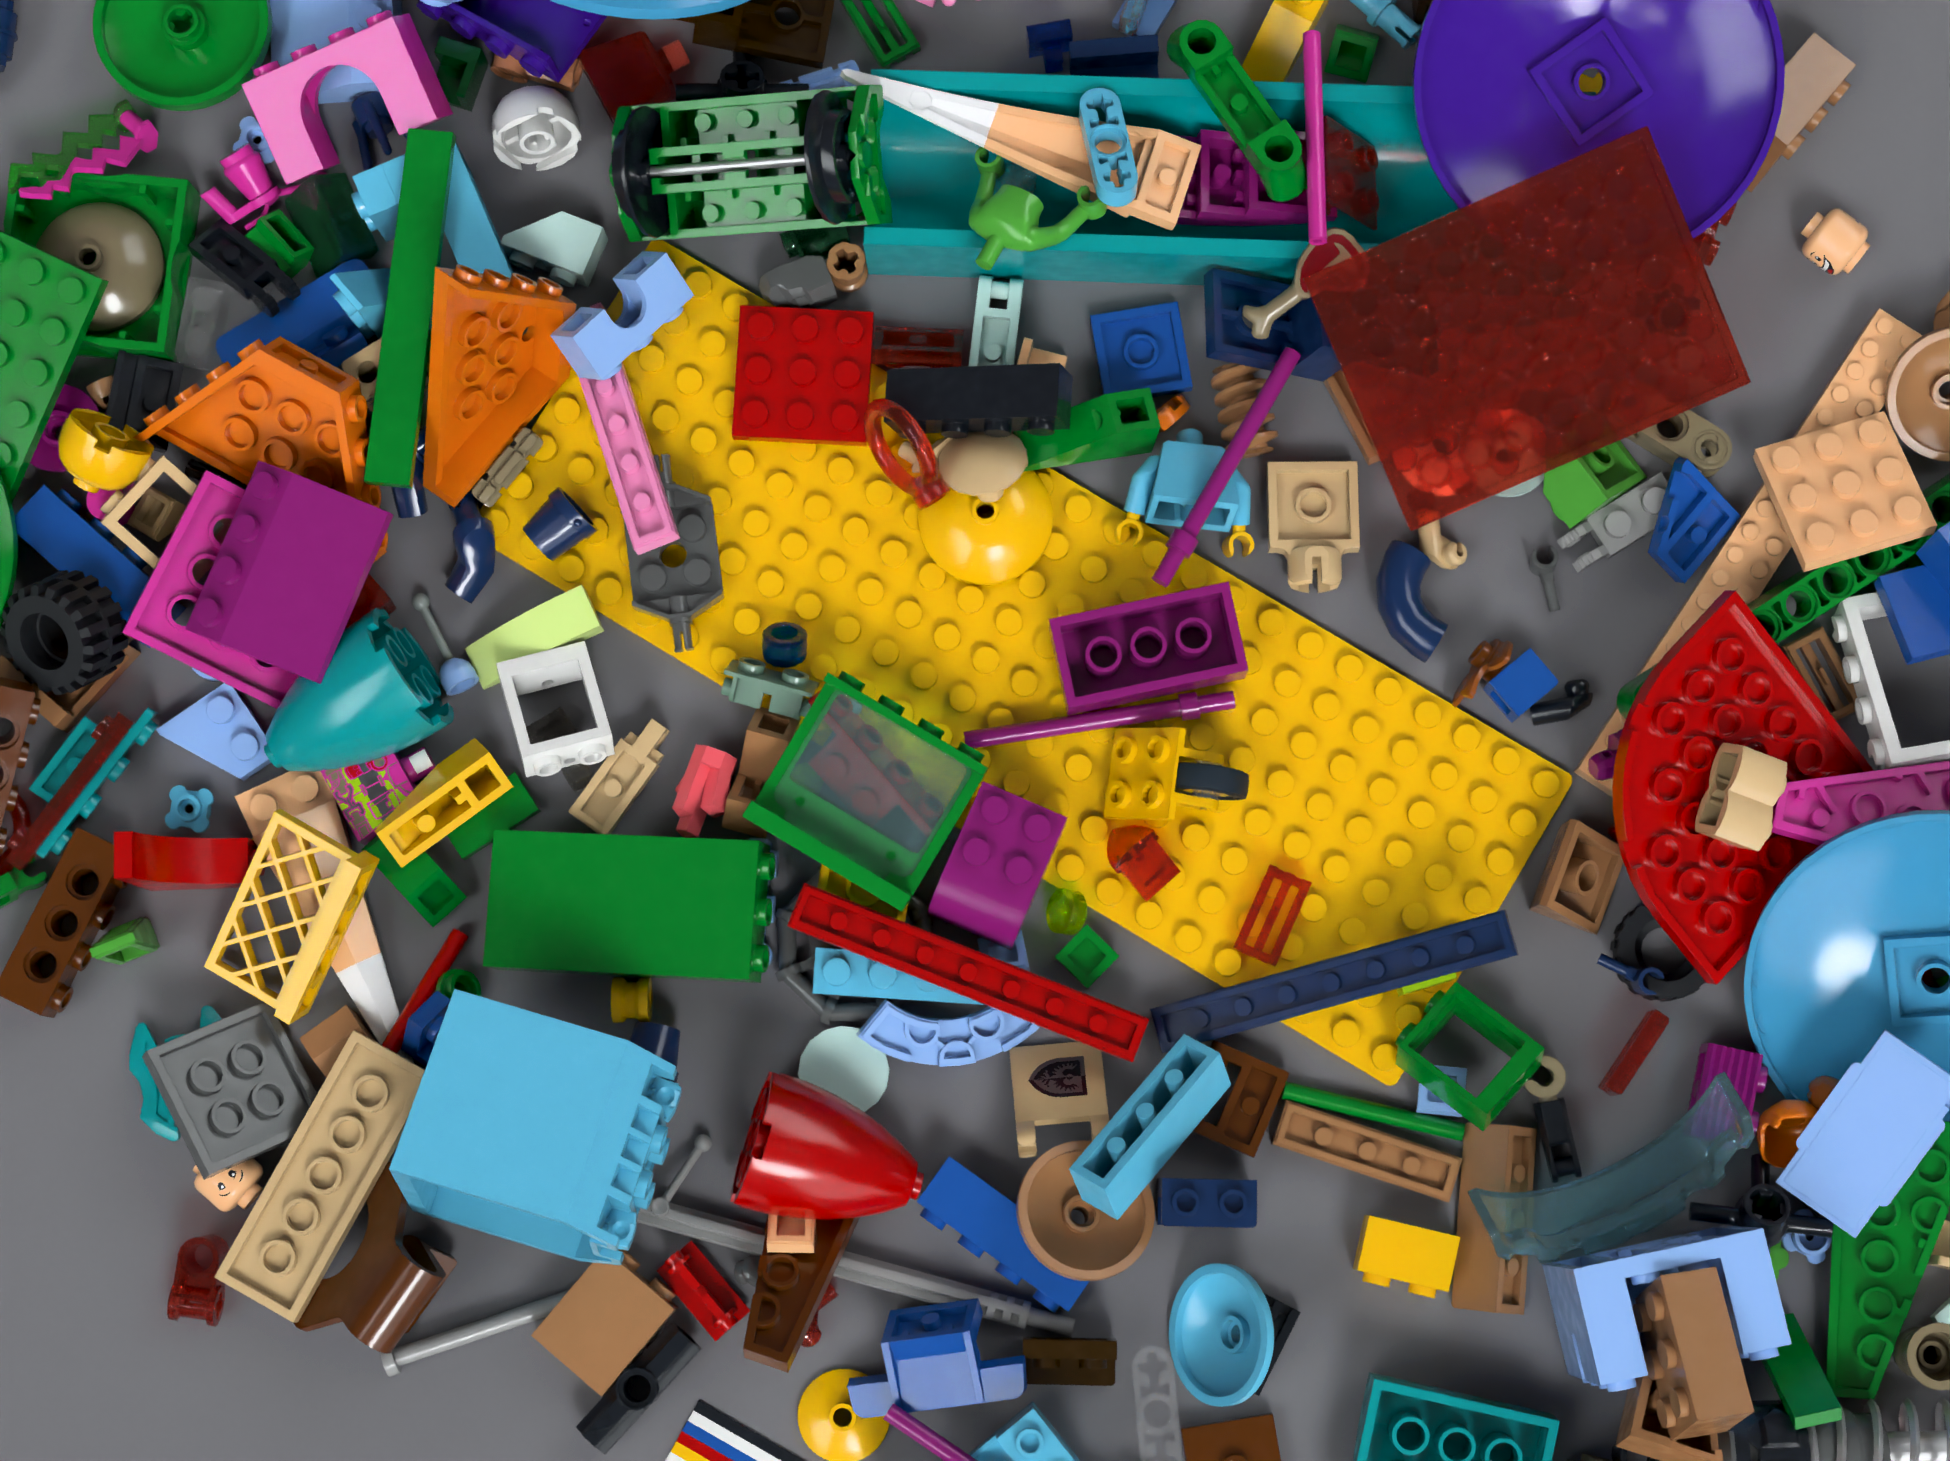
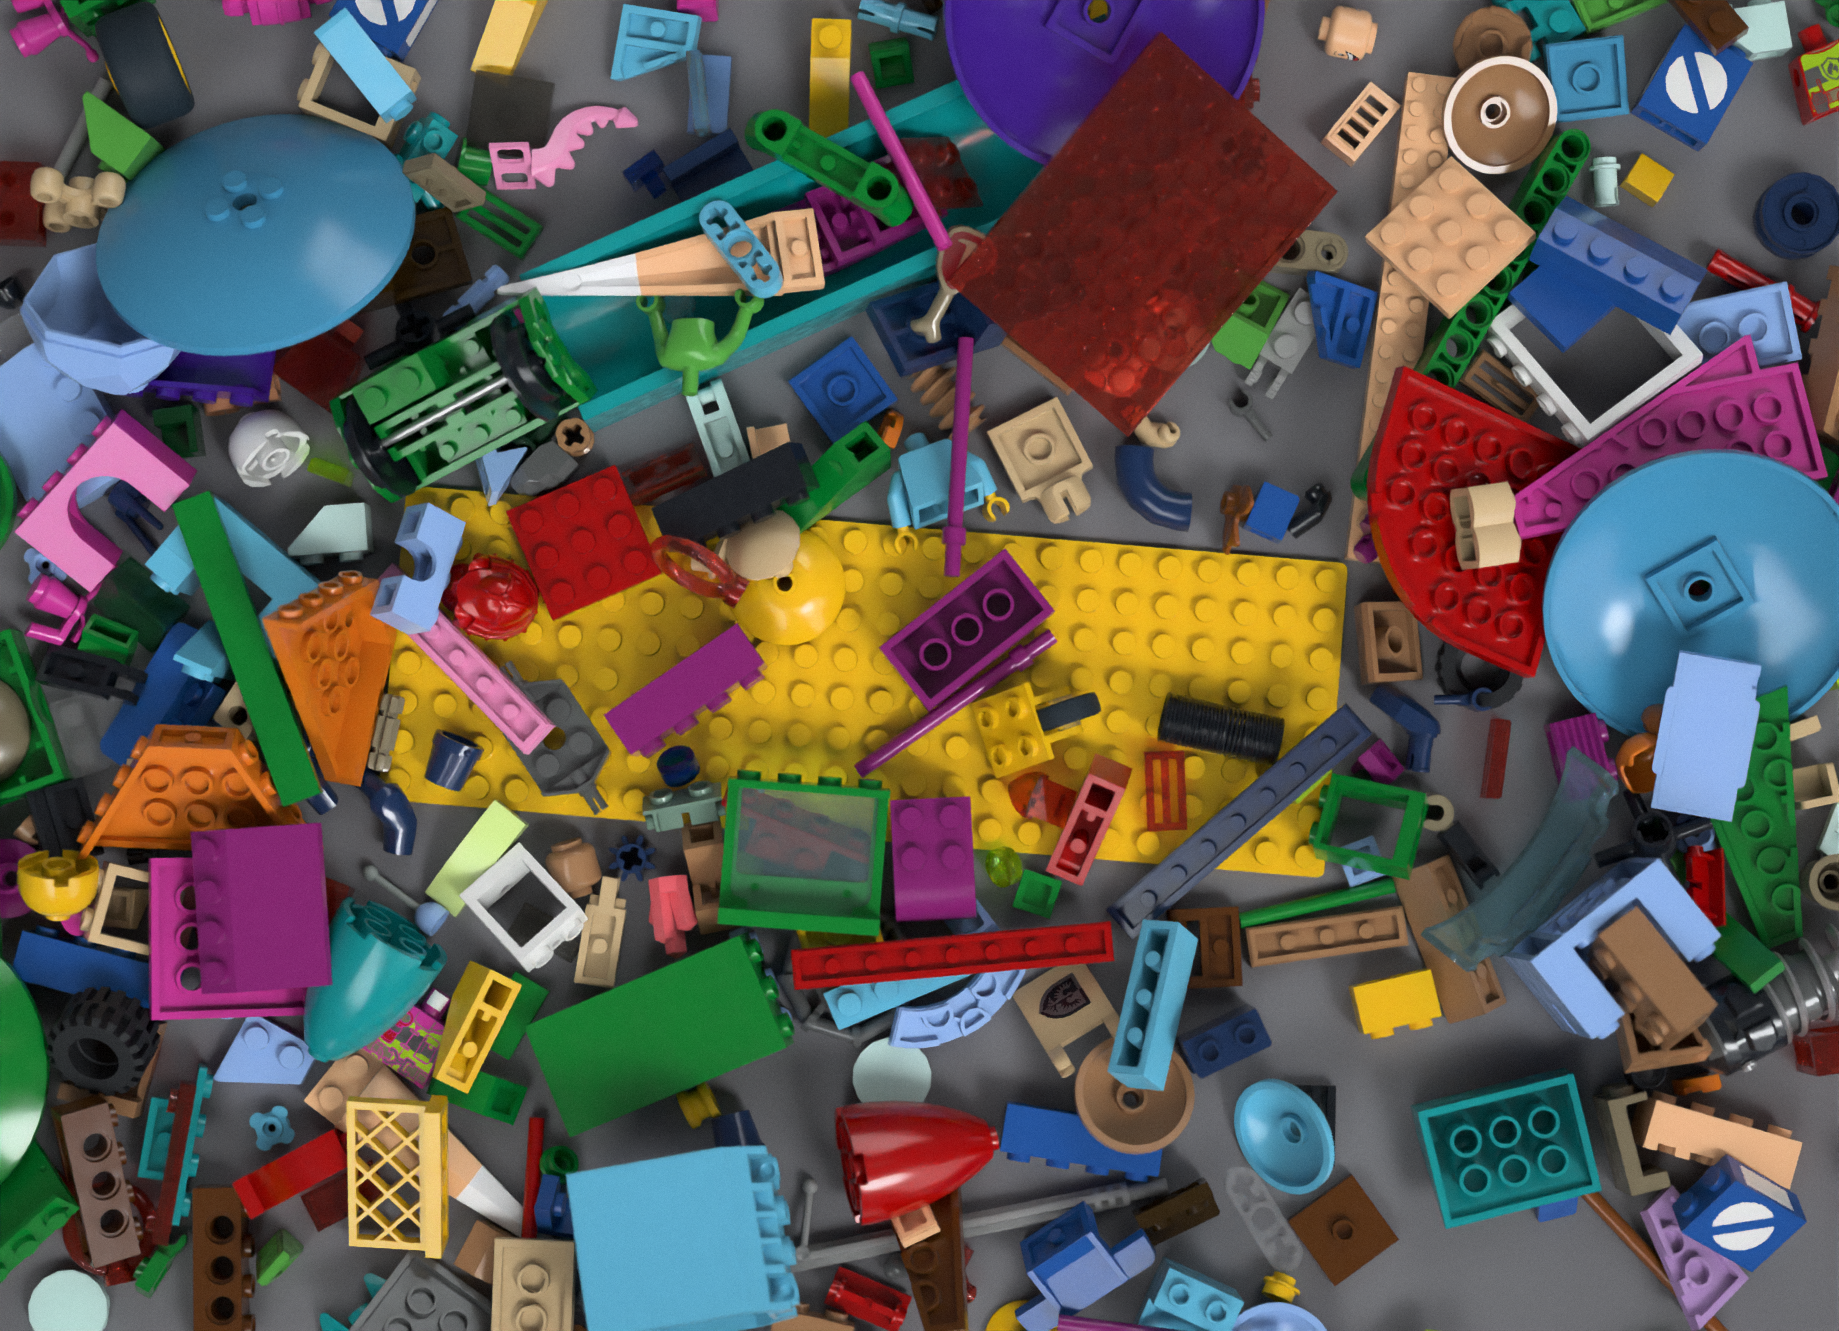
camera: 30 degrees left, 5 degrees up
(206, 911) = (330, 1201): none -> clear red tile
(585, 184) = (331, 472): none -> clear neon green tile
(627, 694) = (574, 866): none -> medium nougat head
(682, 382) = (491, 597): none -> red head
(688, 728) = (622, 863): none -> dark blue gear
(697, 117) = (401, 385): none -> green piece
(753, 259) = (497, 470): none -> light blue slope
(830, 570) = (686, 691): none -> magenta brick
(1178, 905) = (1089, 819): none -> red slope
(1353, 870) = (1207, 728): none -> black piece
(1509, 996) = (1379, 763): none -> magenta tile
(1567, 967) = (1413, 718): none -> dark blue arm
(1773, 355) = (1342, 148): none -> light nougat slope
(1800, 1287) = (1707, 882): none -> red hinge

